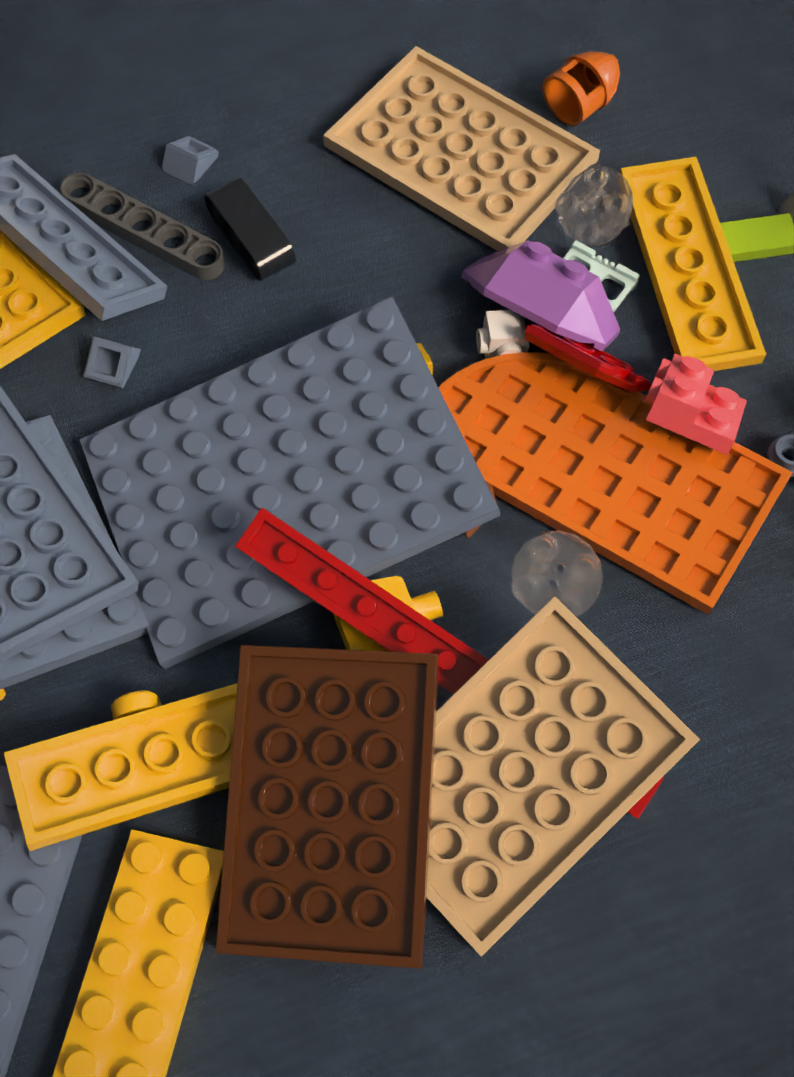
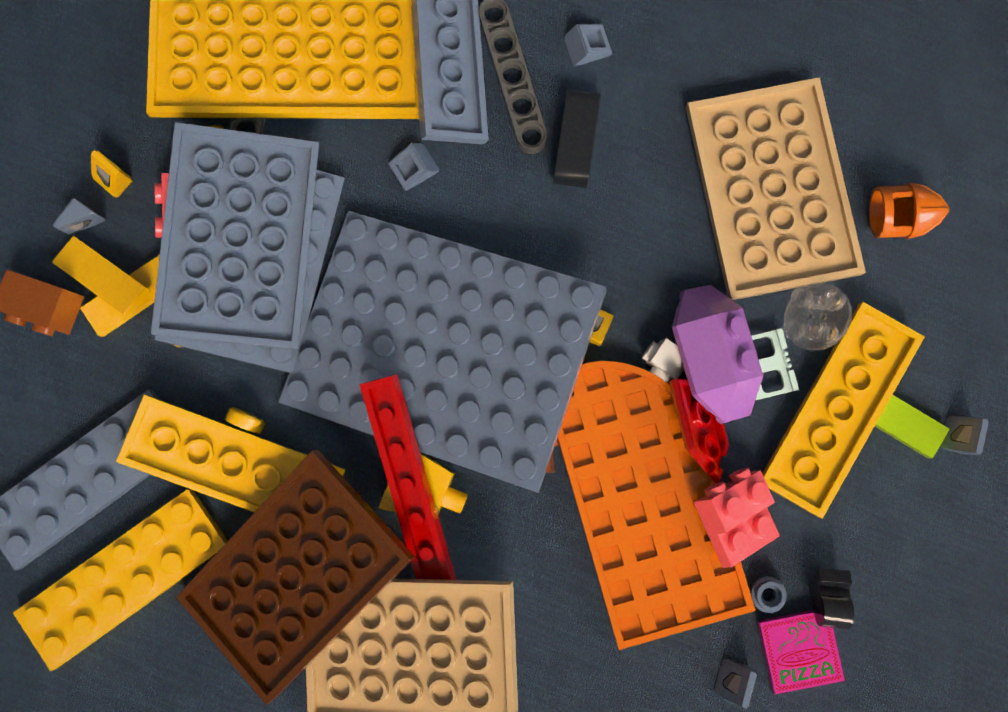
camera: 45 degrees right, 20 degrees up
(537, 566) = (533, 549): clear plate -> none

